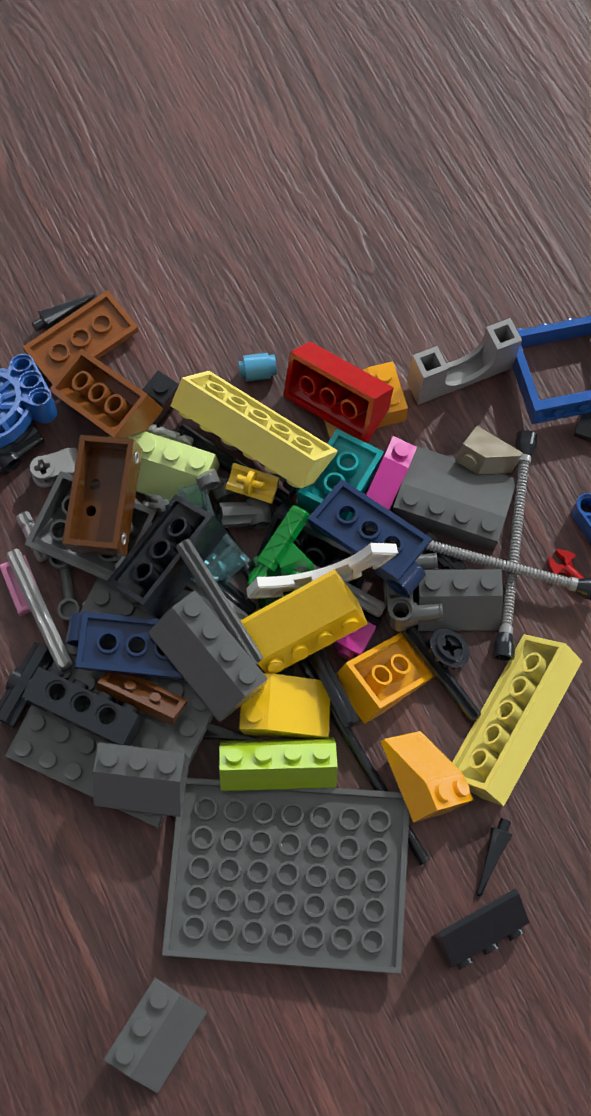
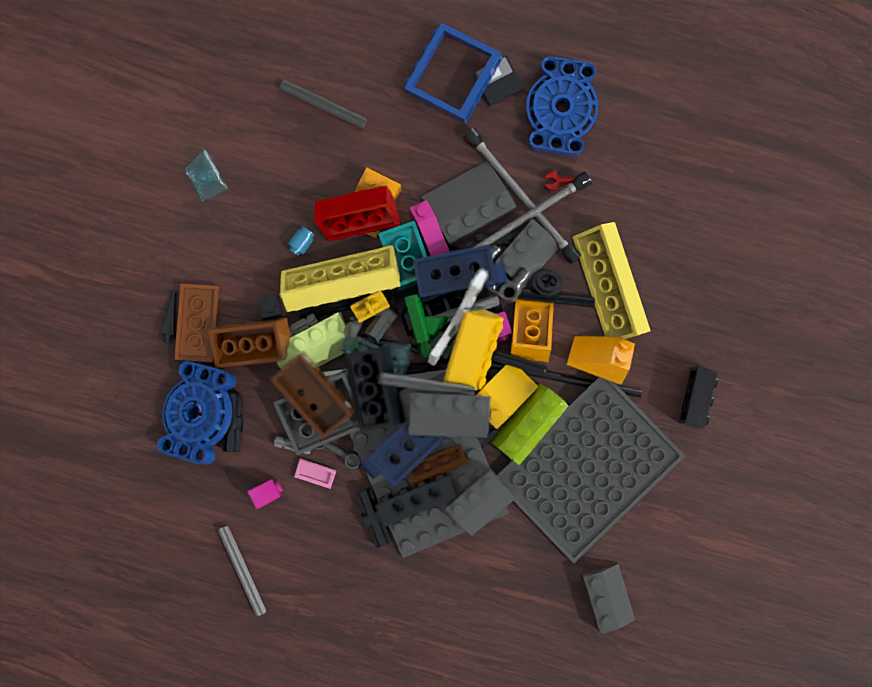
camera: 45 degrees left, 15 degrees up
(39, 609) = (340, 477): light grey axle -> none
(53, 463) = (265, 396): light grey piece -> none
(155, 502) = (337, 368): dark grey axle -> none
(240, 228) = (205, 176): none -> clear light blue slope
(417, 277) = (323, 103): none -> dark grey axle
(433, 377) = (396, 148): light grey arch -> none
(487, 454) = (461, 164): dark tan slope -> none
(498, 841) = (664, 350): black piece -> none

